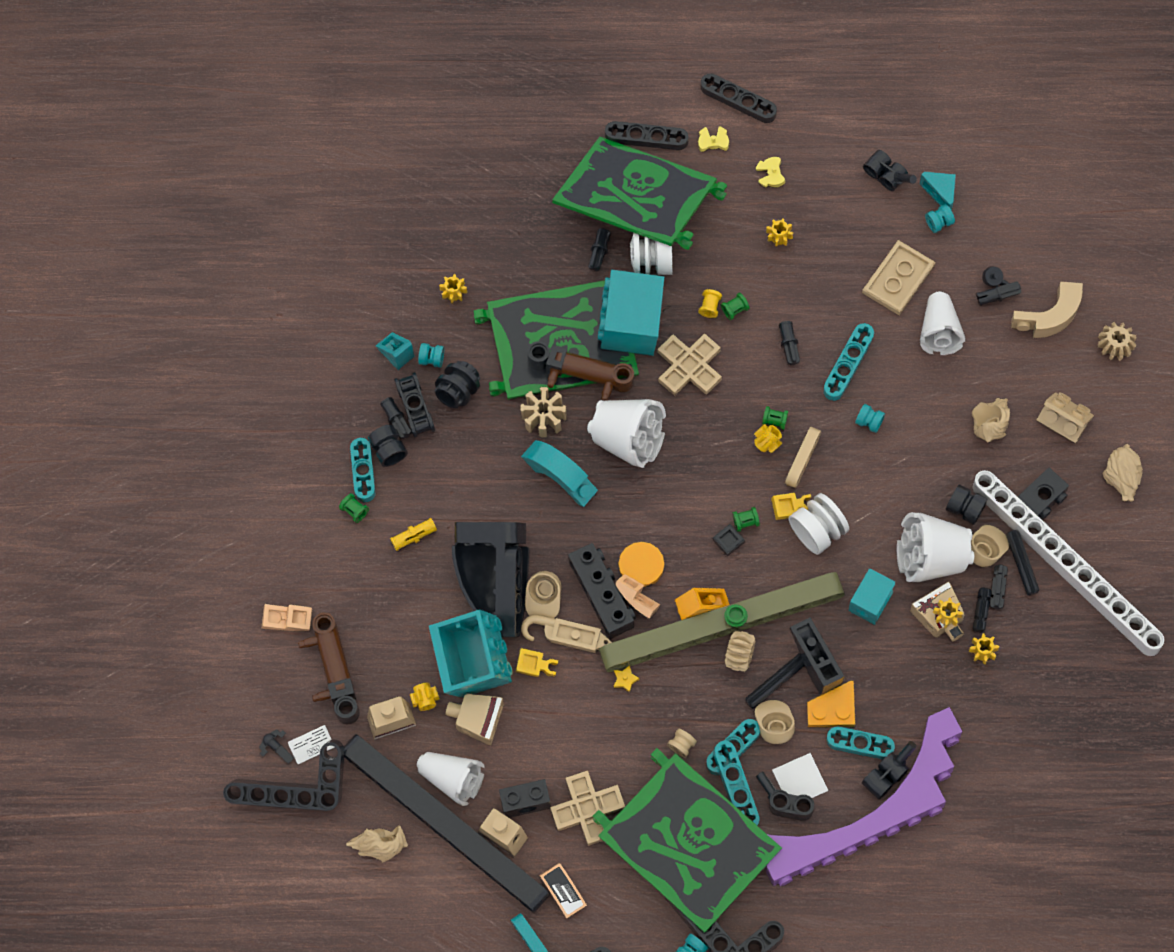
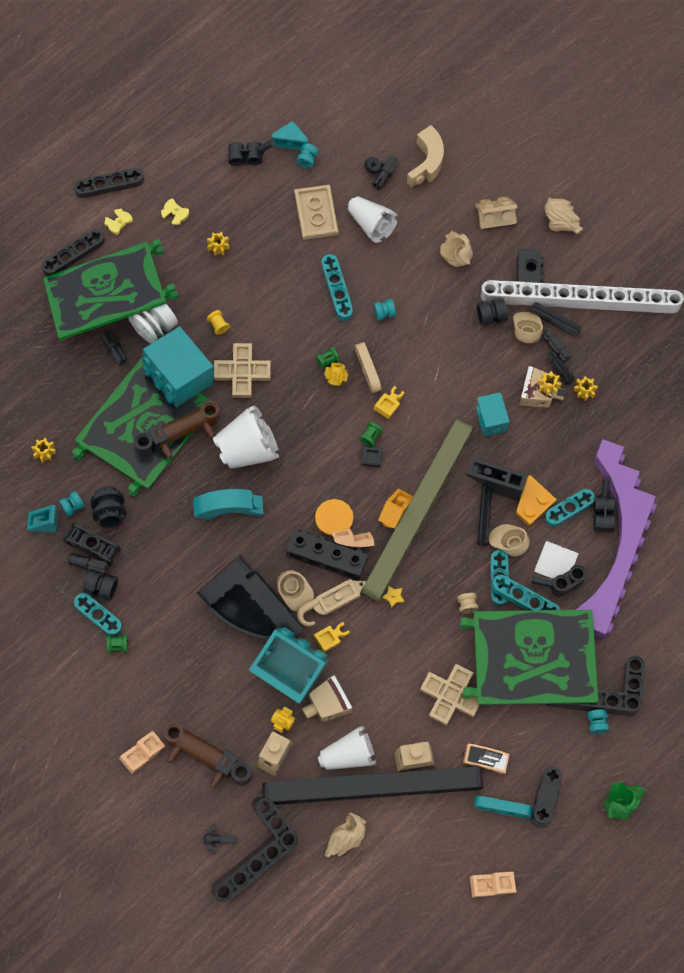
camera: 50 degrees left, 0 degrees up
(309, 744) = (238, 817): white sticker -> none
(413, 534) = (172, 626): yellow pin -> none
(525, 798) = (408, 723): black brick -> none
(532, 412) = (172, 478): tan gear -> none
(735, 306) = (235, 311): green bush -> none
(735, 615) = (426, 496): green plate -> none
(740, 651) = (448, 515): tan gear -> none
(789, 342) = (290, 305): black axle -> none
(819, 523) = (419, 397): white wheel -> none
(932, 548) = (500, 354): white cone -> none
(1117, 341) = (481, 143): tan gear -> none

